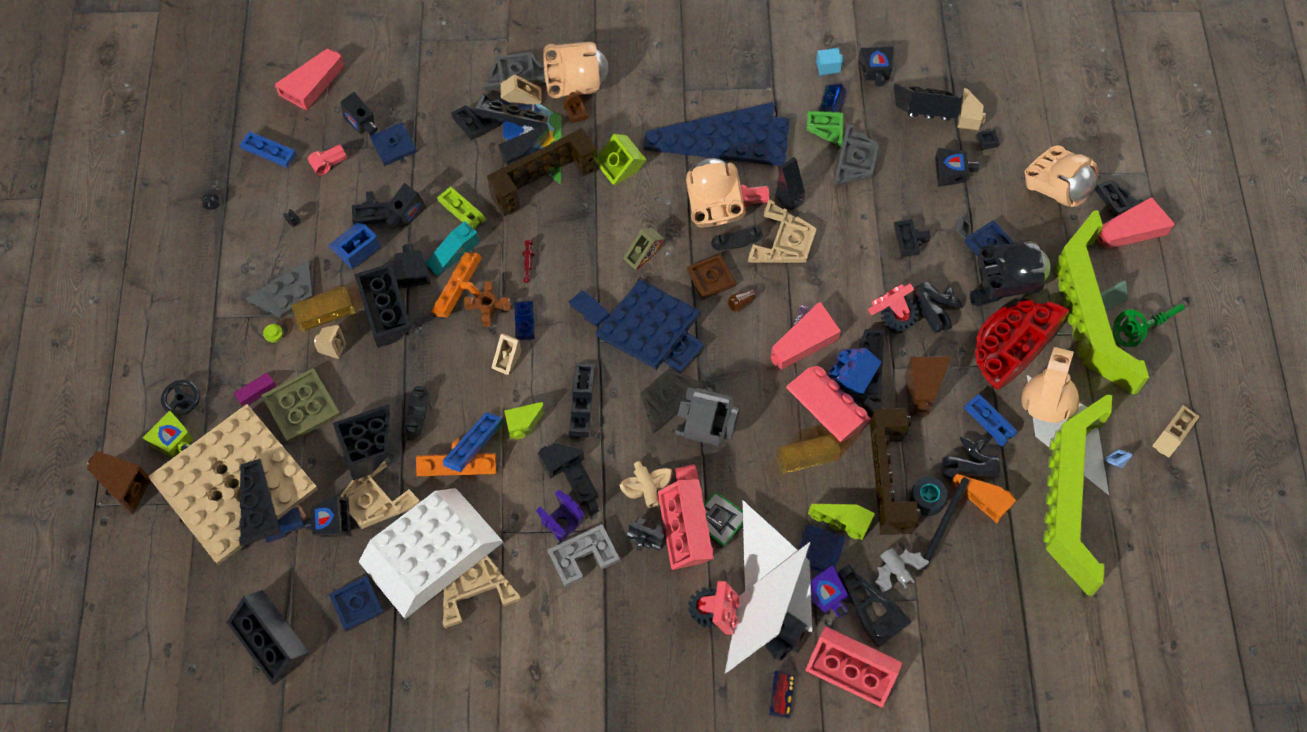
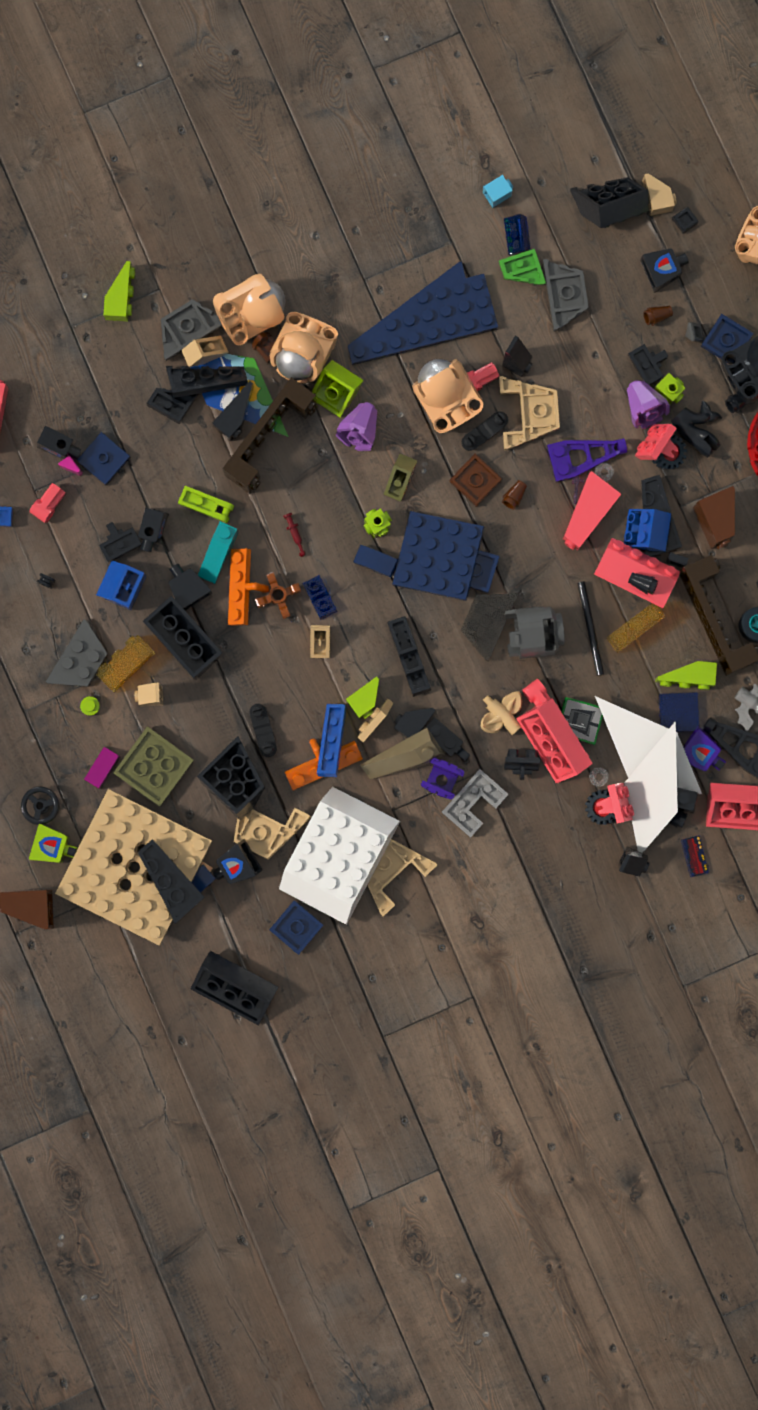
camera: 25 degrees left, 20 degrees up
(361, 137) = (69, 465): none -> dark pink slope
(468, 31) = (117, 300): none -> lime slope
(522, 441) = (377, 717): none -> tan wing
(535, 484) = (404, 756): none -> dark tan wedge
(604, 114) = (302, 347): none -> light nougat piece
(605, 276) = (377, 529): none -> lime brick
(624, 195) = (359, 427): none -> medium lavender cone
(714, 573) = (603, 772): none -> clear plate
(715, 672) = (633, 862): none -> black slope
(764, 441) = (590, 628): none -> black piece
(797, 285) = (561, 460): none -> dark purple plate
(831, 409) = (643, 582): none -> black cone
(833, 306) = (608, 467): none -> clear plate
(876, 63) = (547, 175): black torso -> none
(894, 268) = (646, 405): none -> medium lavender cone
(921, 263) = (670, 383): none -> lime brick
(933, 202) = (655, 315): none -> reddish brown cone

